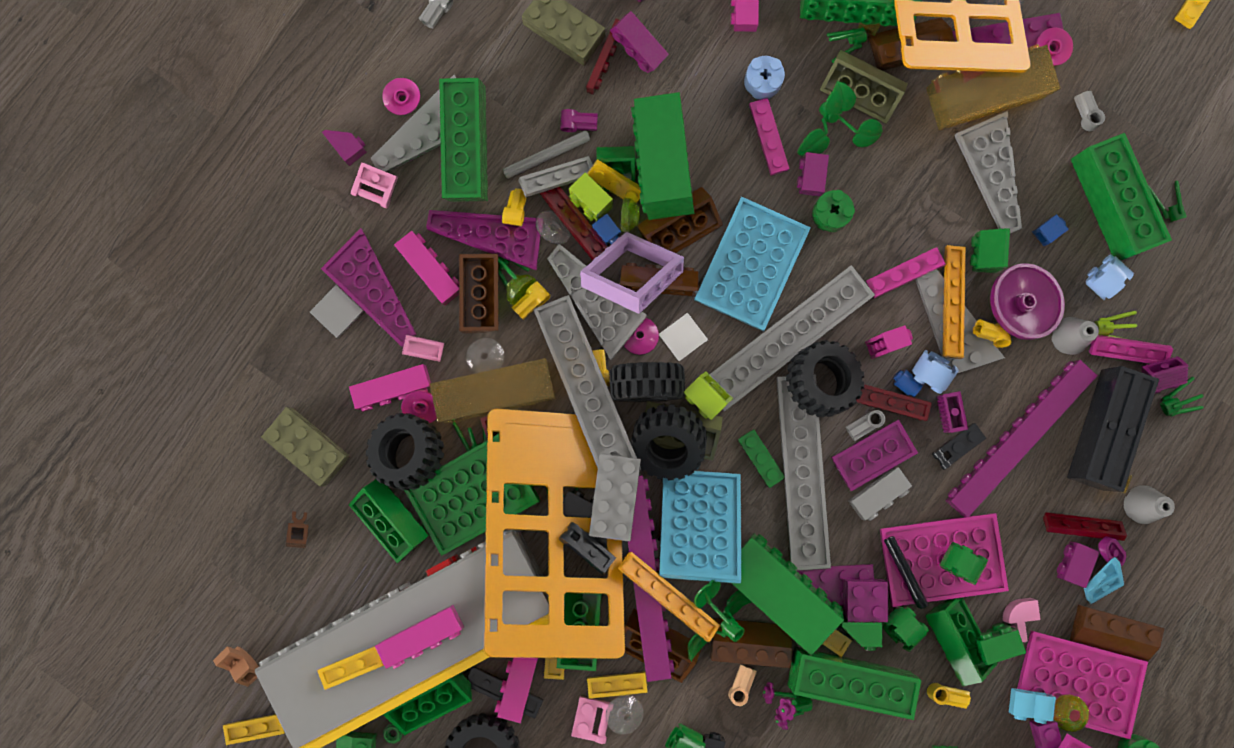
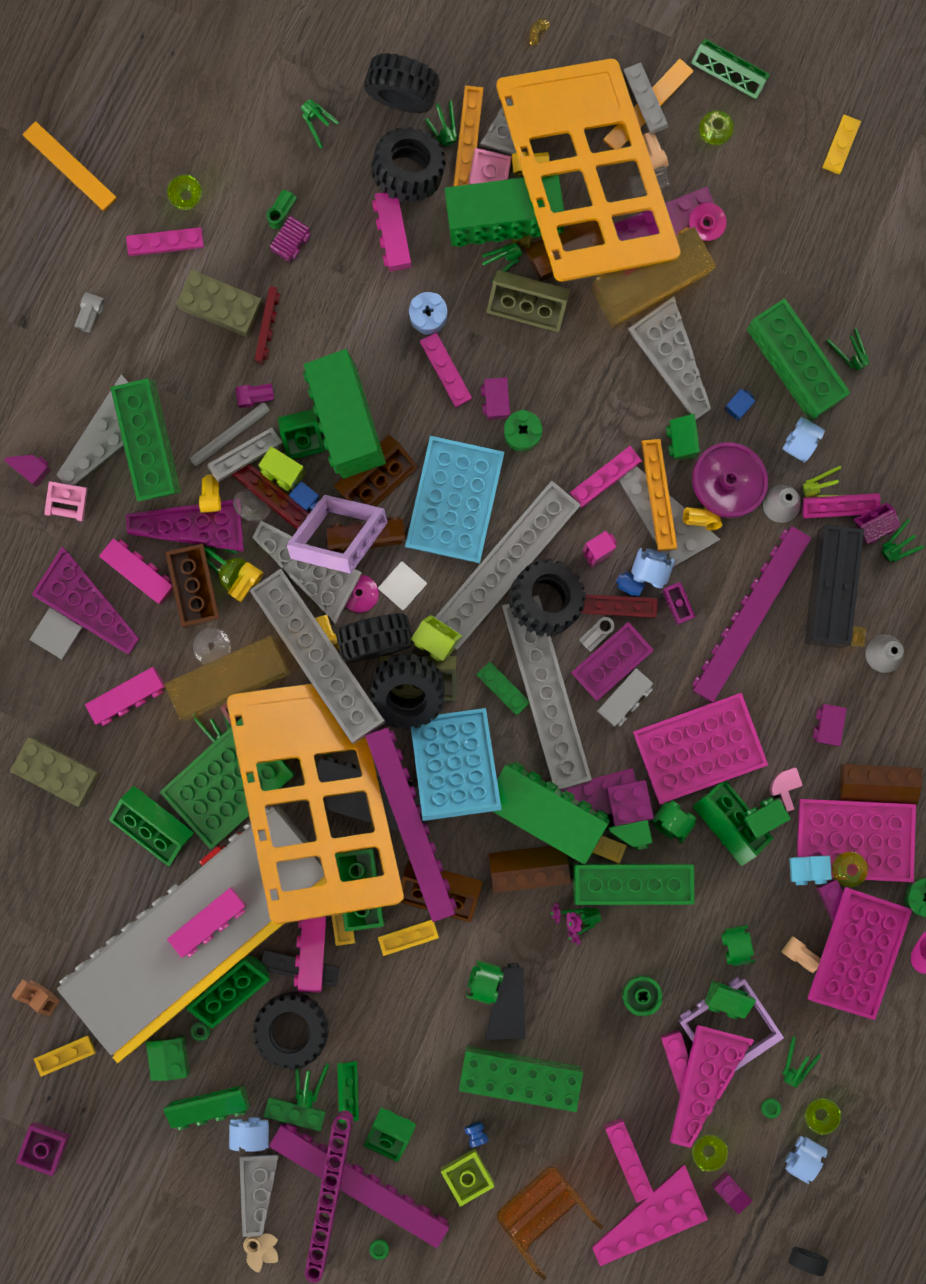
camera: 10 degrees left, 0 degrees up
(297, 532) = (65, 856): reddish brown brick -> none
(350, 667) = (148, 965): yellow plate -> none
(384, 446) = (132, 751): black tyre -> none
(398, 88) = (67, 401): dark pink dish -> none
(411, 405) = (158, 716): dark pink dish -> none
(423, 348) = (149, 651): bright pink tile -> none
(585, 720) = (385, 976): bright pink plate -> none
(587, 548) = (348, 807): black plate -> none
(614, 181) = (302, 448): yellow plate -> none
(615, 497) = (364, 752): light grey brick -> none
(619, 708) = (413, 961): clear dish -> none
(629, 215) = (323, 477): clear neon green piece -> none
(638, 42) = (297, 305): magenta brick -> none
(669, 596) = (436, 837): light orange tile -> none
(729, 626) = (505, 834): green plant -> none
(742, 682) = (529, 909): light nougat piece -> none
(840, 99) = (502, 325): green plant -> none
(906, 572) = (664, 768): black axle -> none
(949, 695) = (733, 878): yellow piece -> none
(959, 445) = (693, 634): black plate -> none
(963, 563) = (715, 747): green brick -> none
(1084, 526) = (829, 687): dark red plate -> none
(1089, 109) = (754, 276): light grey piece -> none
(1105, 581) = (859, 736): medium azure wing -> none
(1111, 548) = (860, 706): magenta plate -> none

